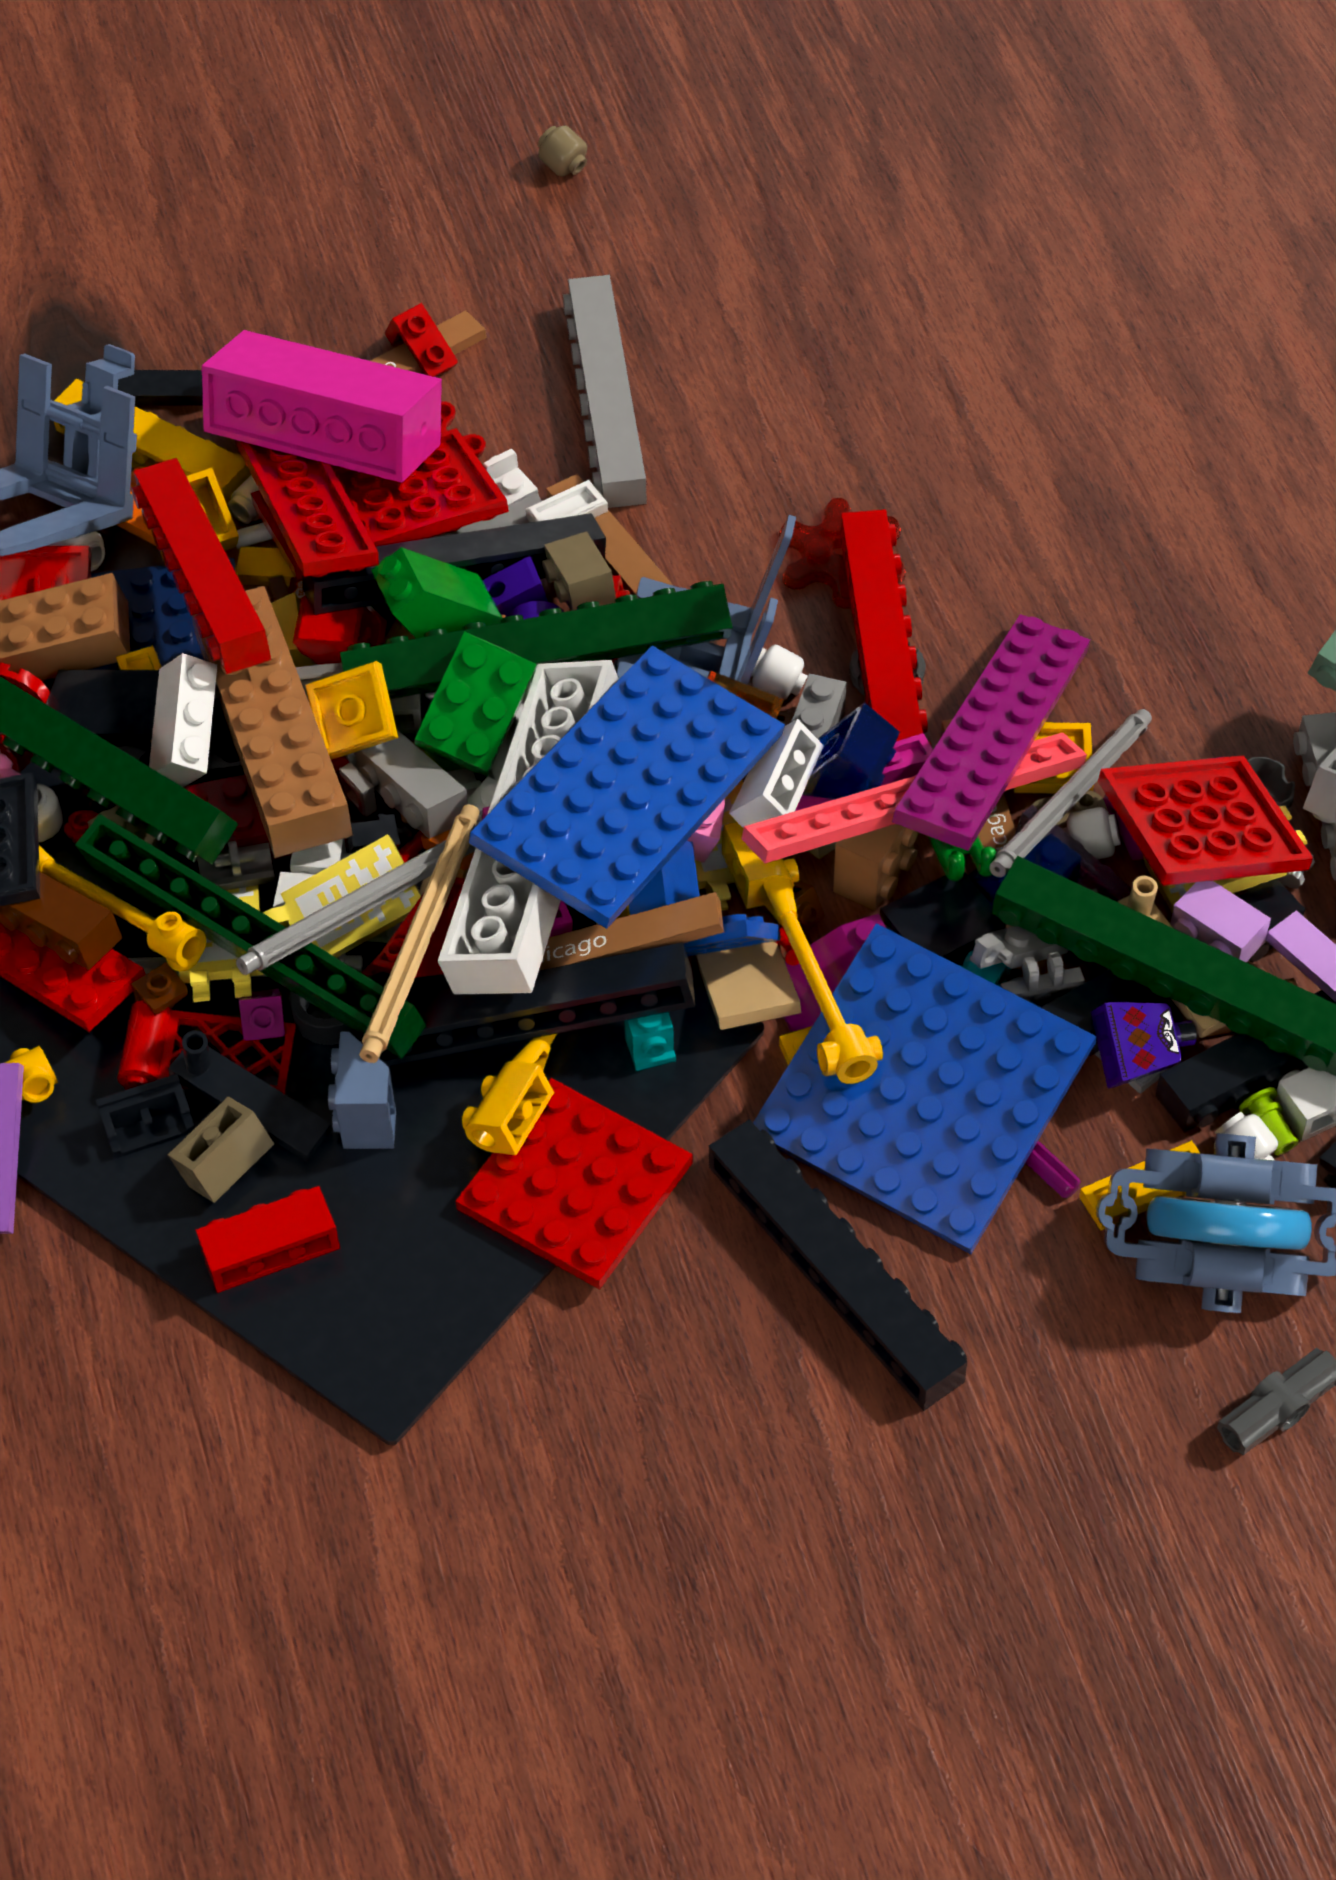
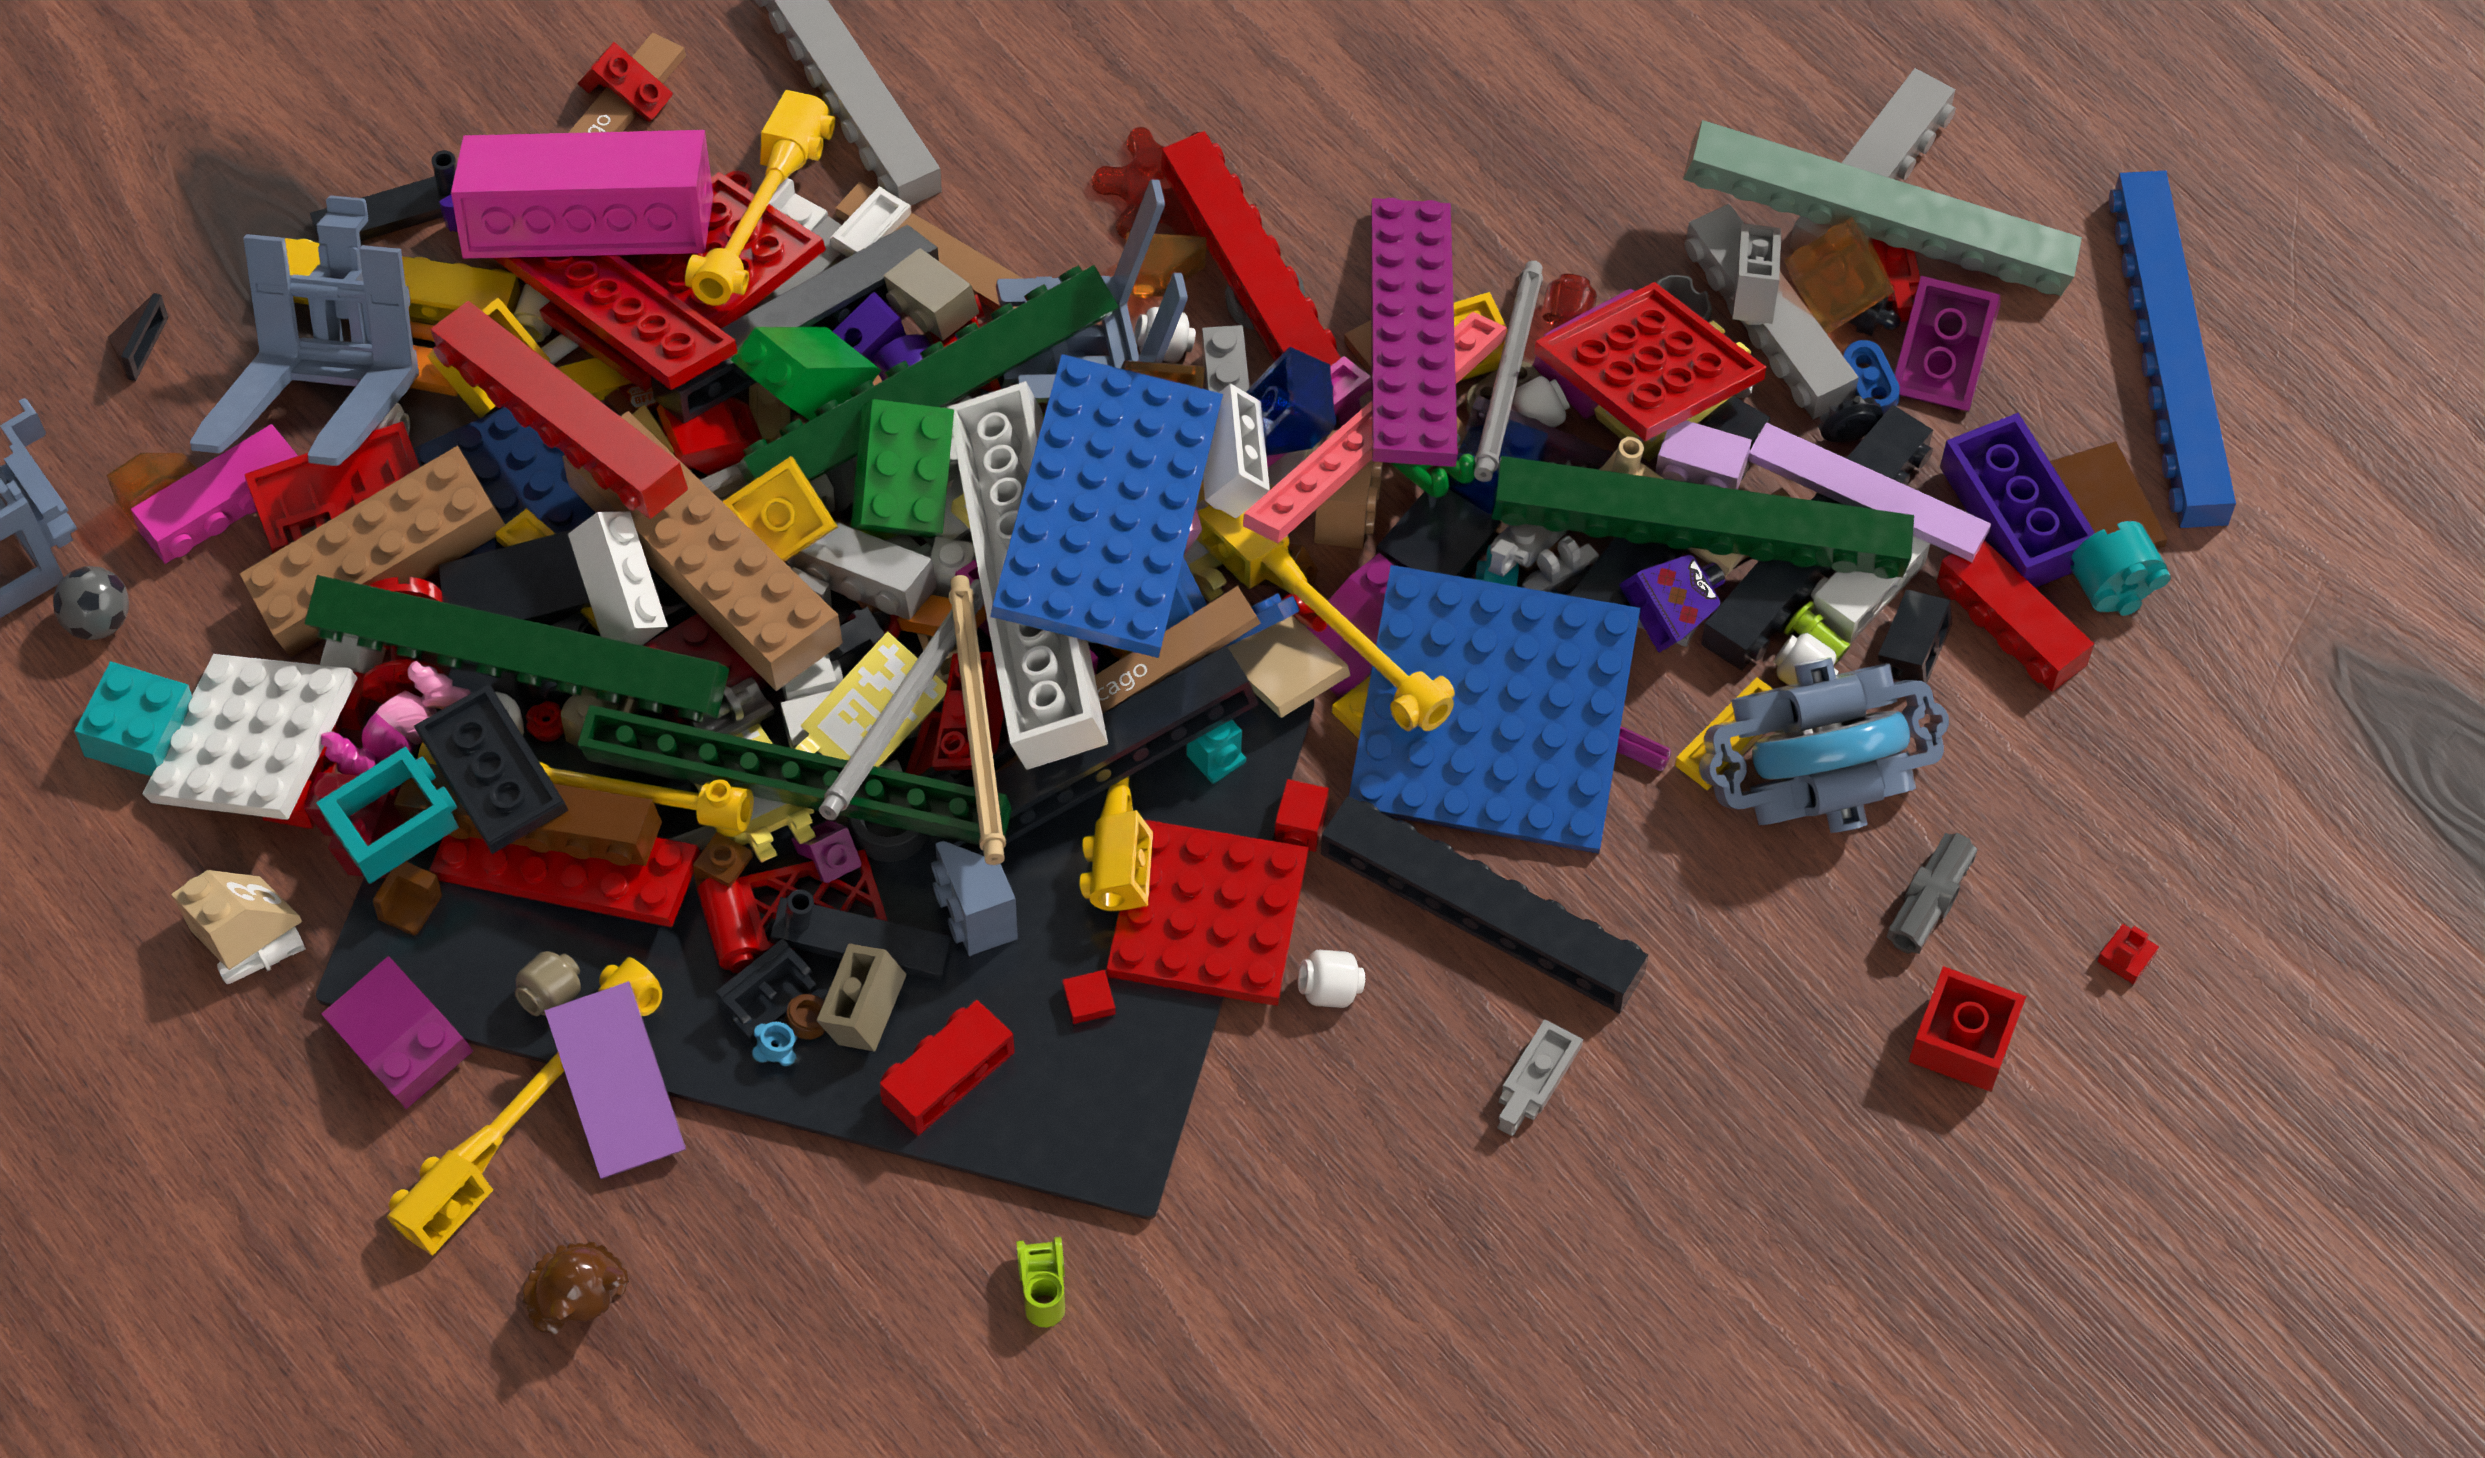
camera: 25 degrees left, 5 degrees up
(131, 1155) = (778, 1034): none -> dark azure plate
(162, 1146) = (803, 1015): none -> reddish brown tile
(262, 1457) = (1042, 1274): none -> lime piece
(429, 1221) = (1089, 997): none -> red tile
(523, 422) = (787, 141): none -> yellow bar
(659, 1281) = (1330, 978): none -> white head
(702, 1123) = (1301, 814): none -> red brick
(807, 612) = (1167, 256): none -> clear orange slope
(813, 1440) = (1537, 1075): none -> light grey hinge
(1161, 746) = (1567, 299): none -> clear red head
(1256, 1544) = (1967, 1028): none -> red brick

